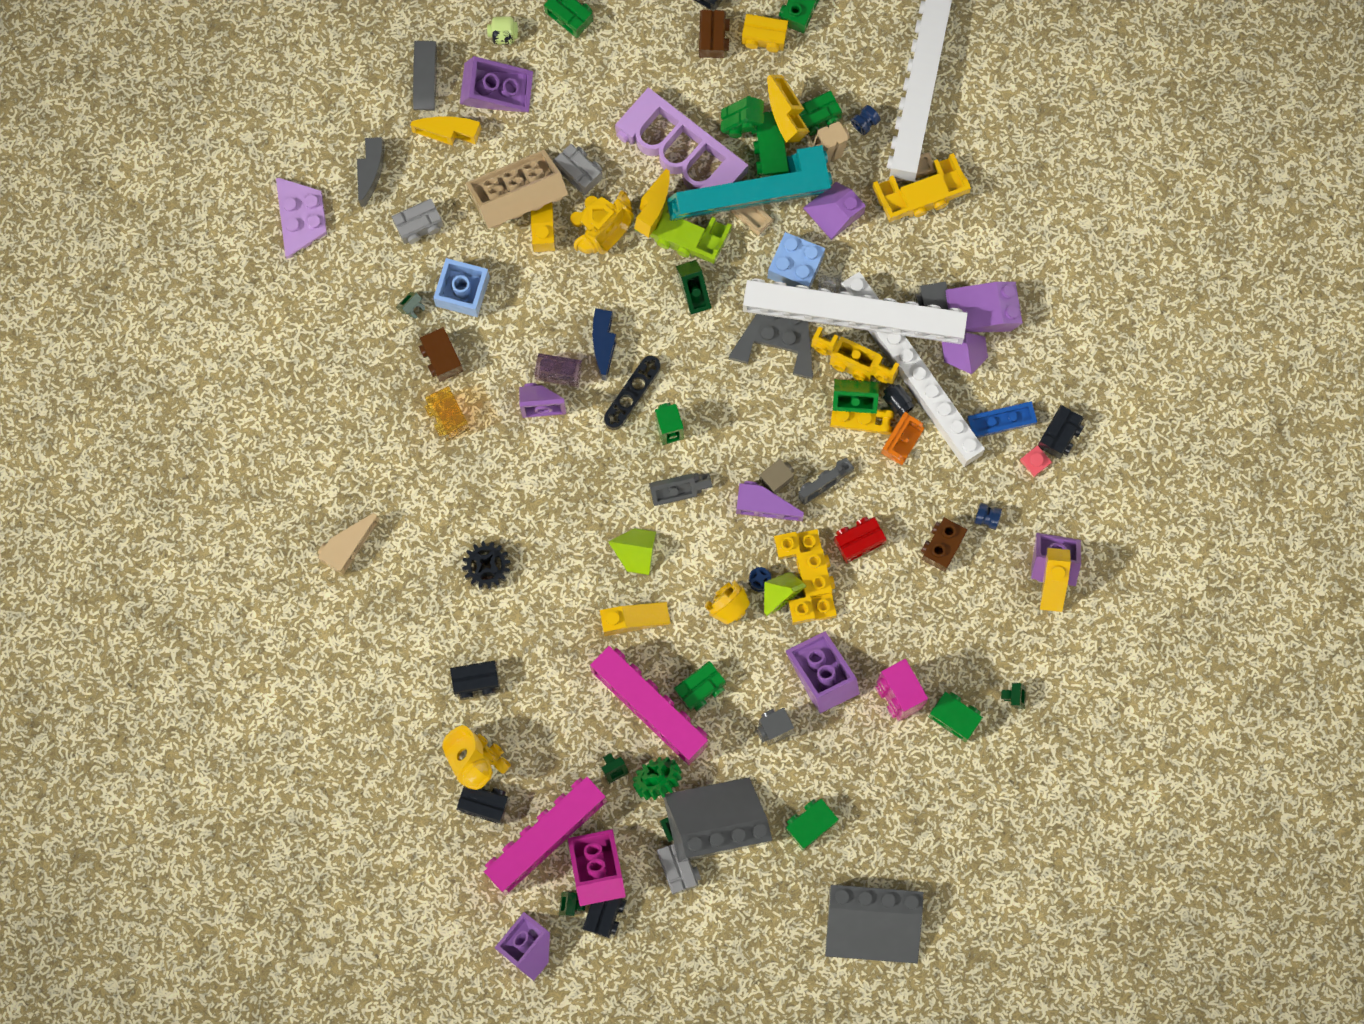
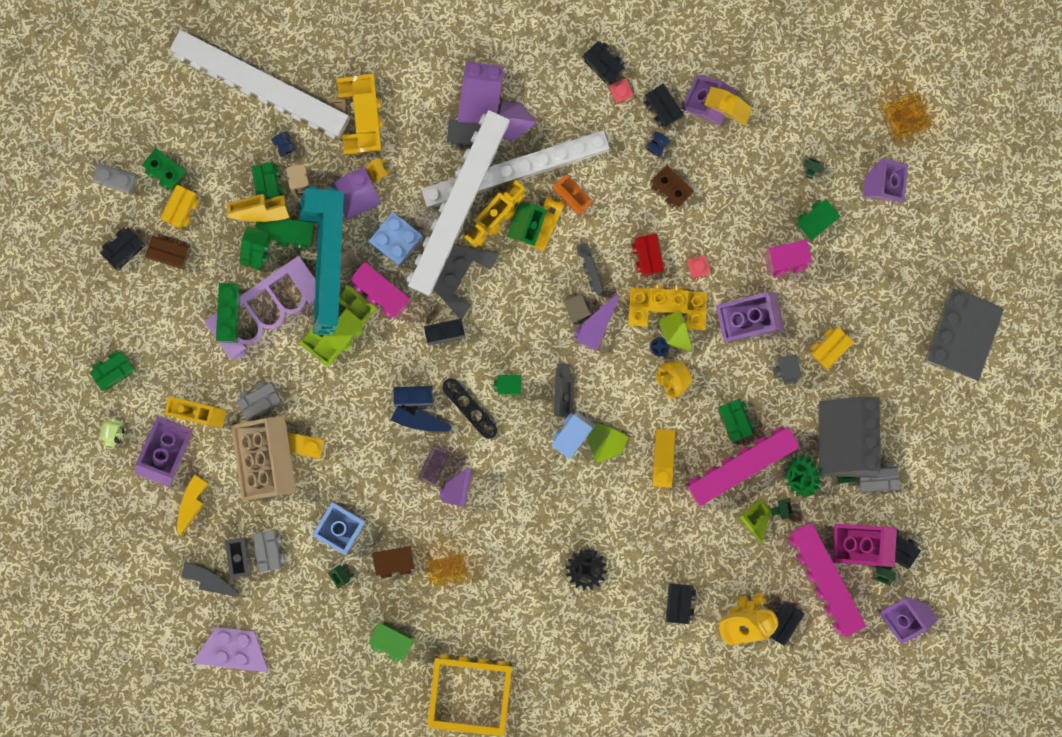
camera: 70 degrees left, 10 degrees up
(343, 547) = (538, 685): tan slope -> none
(349, 461) = (469, 727): none -> yellow window
(351, 374) = (391, 641): none -> bright green brick
(402, 191) = (238, 557): none -> dark grey brick
(424, 75) = (136, 511): dark grey slope -> none
(548, 108) = (195, 412): none -> yellow slope
(593, 741) = (756, 519): none -> lime slope
(604, 223) = (314, 394): yellow piece -> none
(628, 327) = (413, 396): none -> dark blue brick
(633, 507) = (574, 433): none -> light blue brick
(652, 205) = (314, 345): yellow slope -> none
(663, 106) = (228, 313): none -> green brick
(693, 286) = (391, 331): dark green slope -> none
(709, 341) = (444, 332): none -> black brick
(734, 259) = (379, 291): none -> dark pink brick
(811, 824) = (871, 361): green brick -> none
(813, 772) = (831, 348): none -> yellow brick
(863, 599) = (698, 266): none -> coral plate
(865, 223) = (376, 170): none -> yellow tile
(898, 399) = (538, 188): black brick -> none
(1002, 419) = (579, 107): blue plate -> none
(1025, 785) = (886, 181): none -> medium lavender slope
(1032, 511) = (663, 106): none -> black brick
(1105, 785) = (905, 117): none -> clear yellow brick

